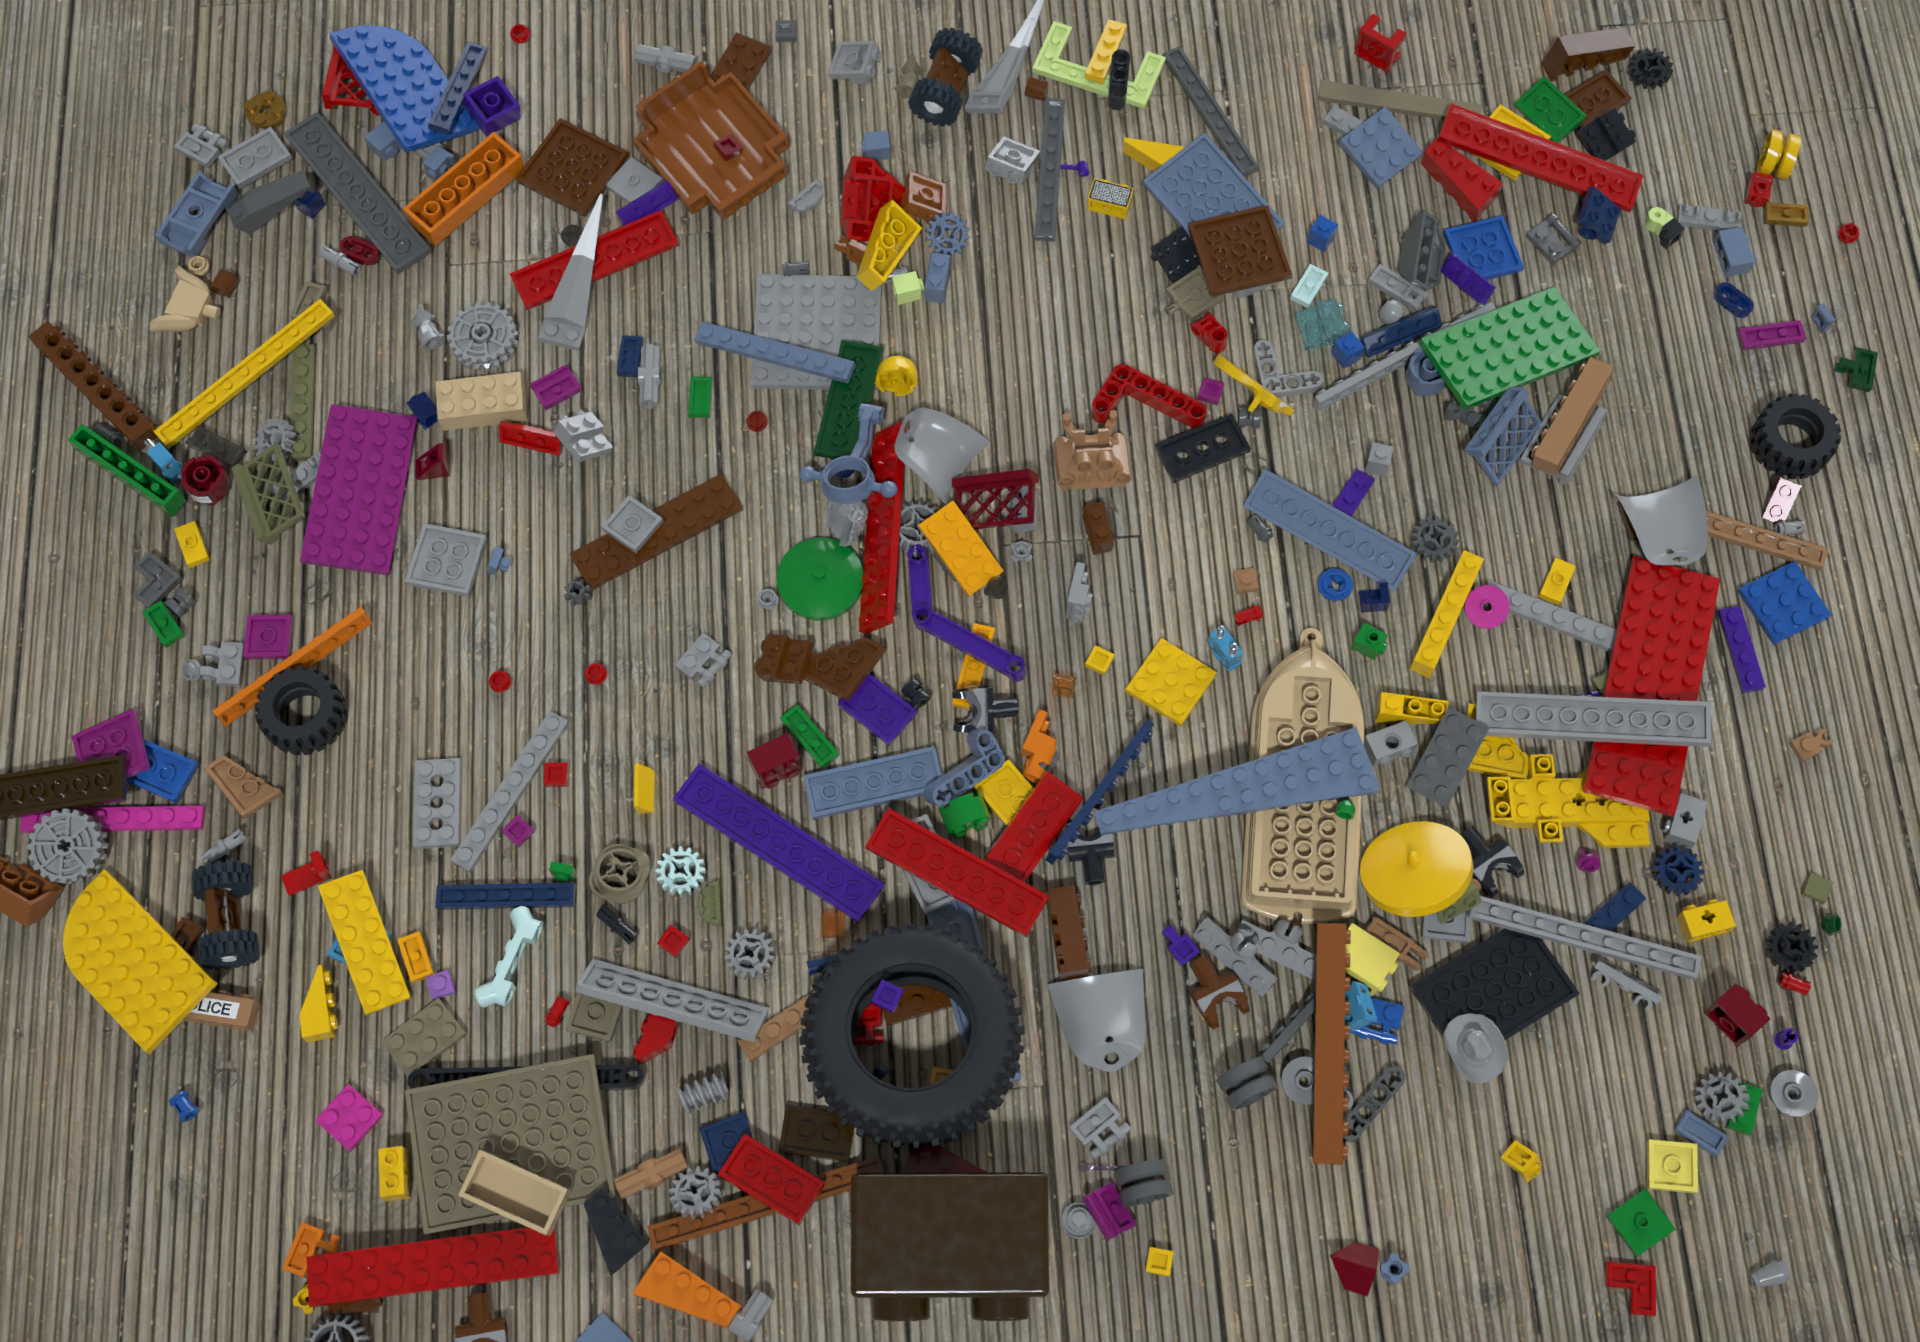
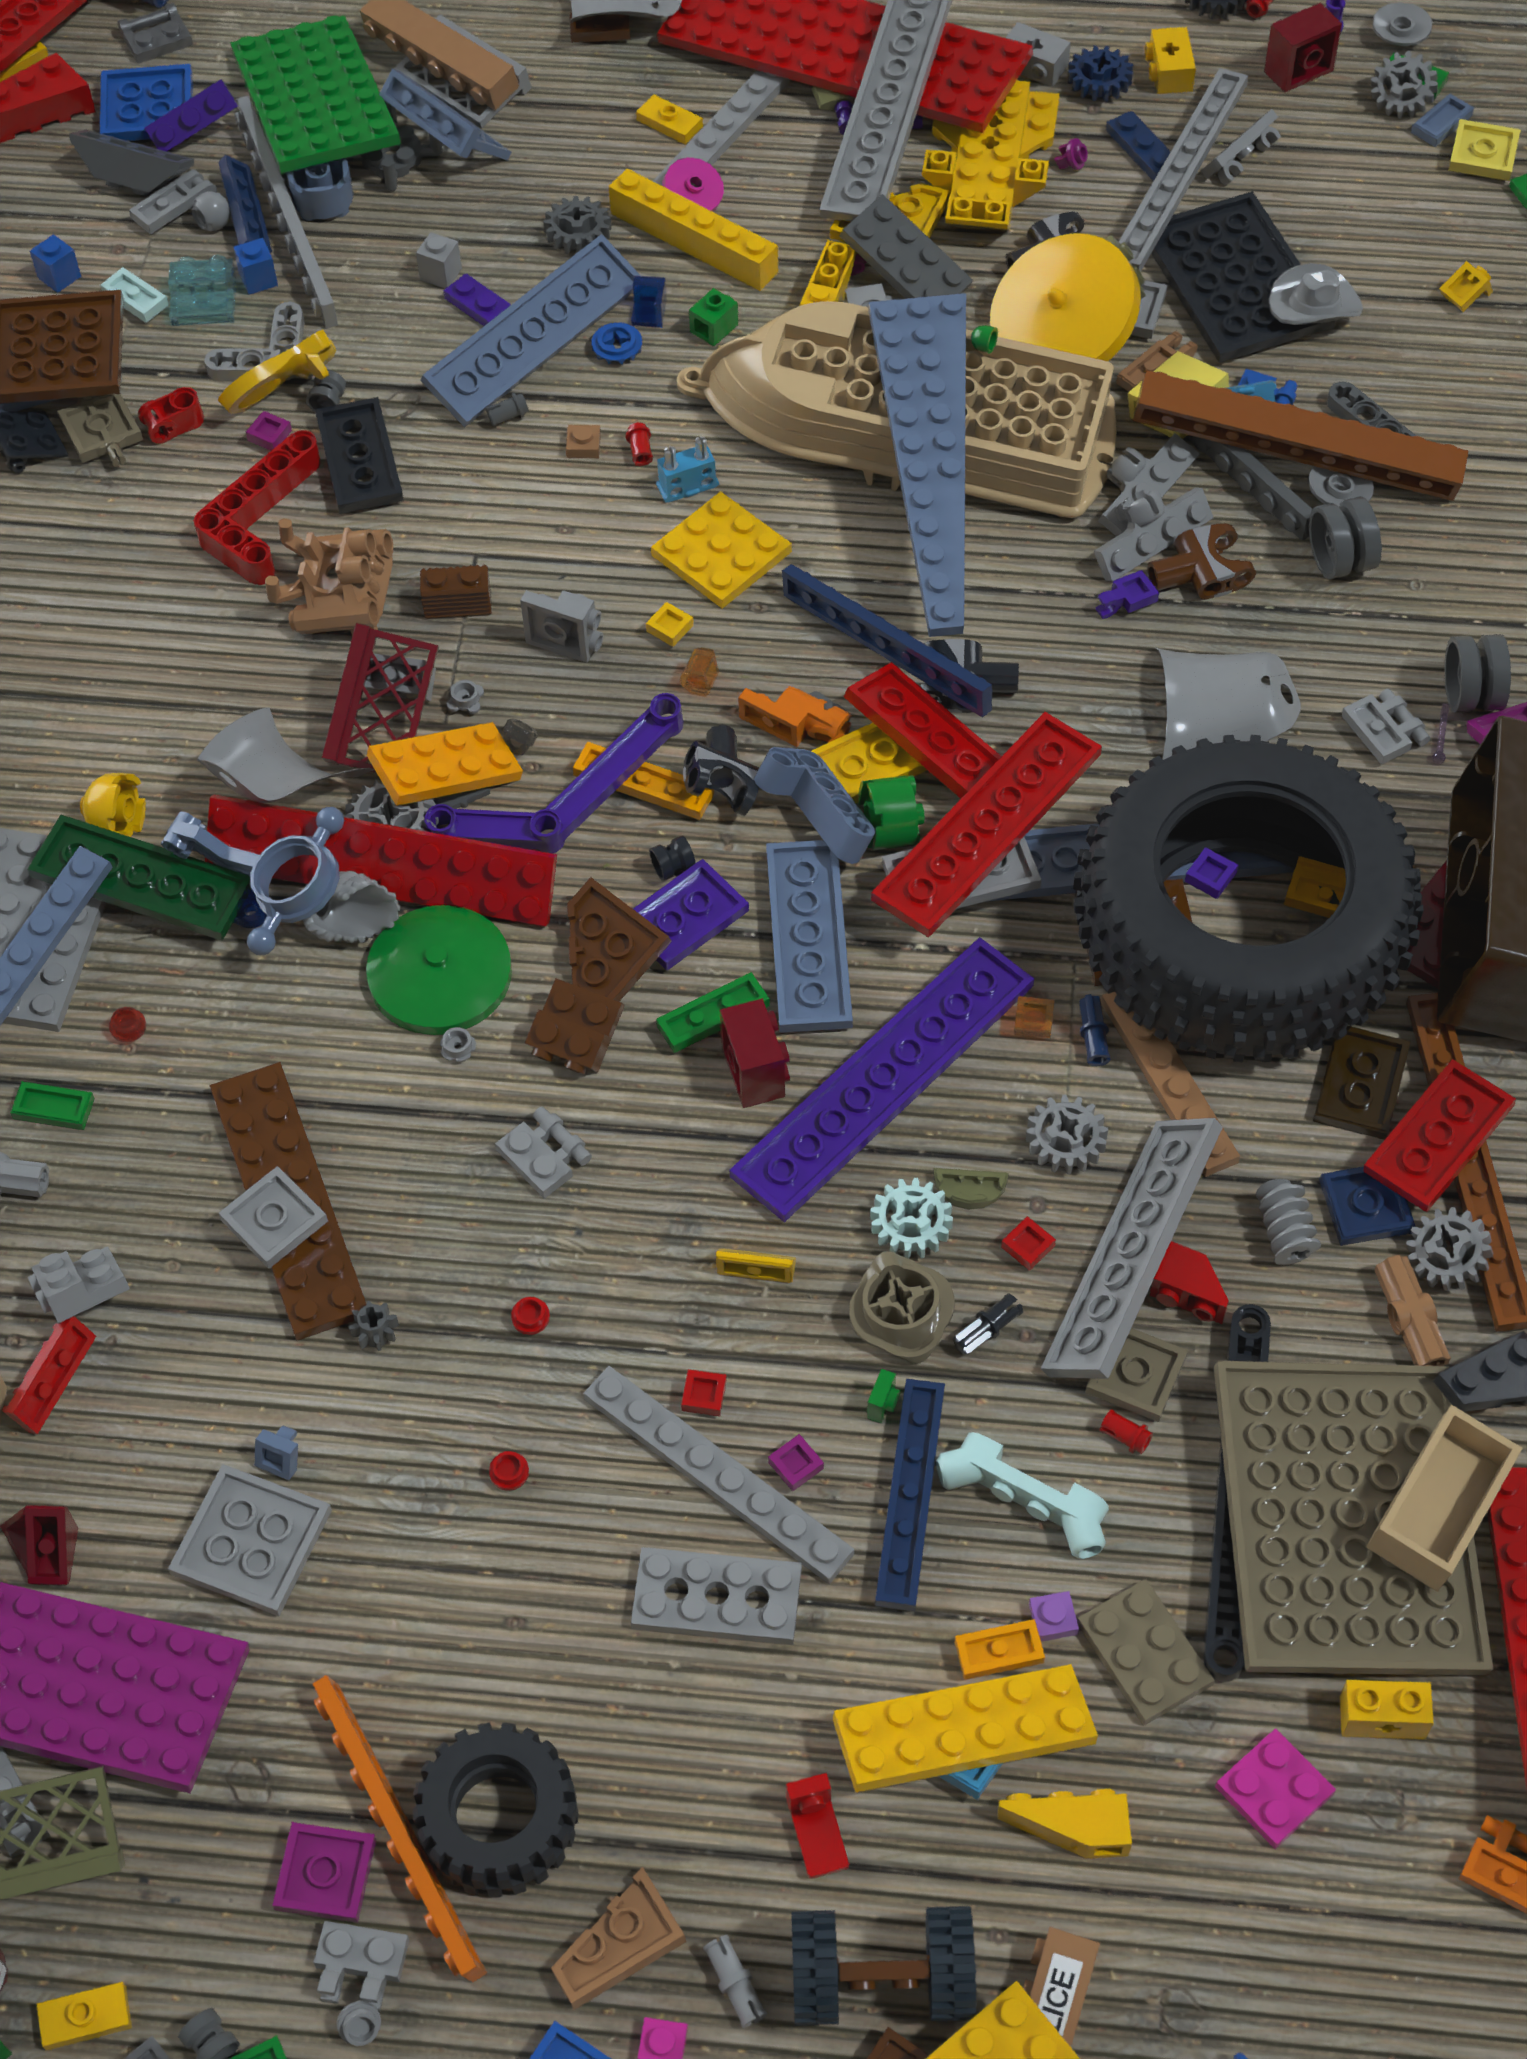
camera: 80 degrees left, 10 degrees down
(1067, 933) = (1110, 713): reddish brown wedge -> none

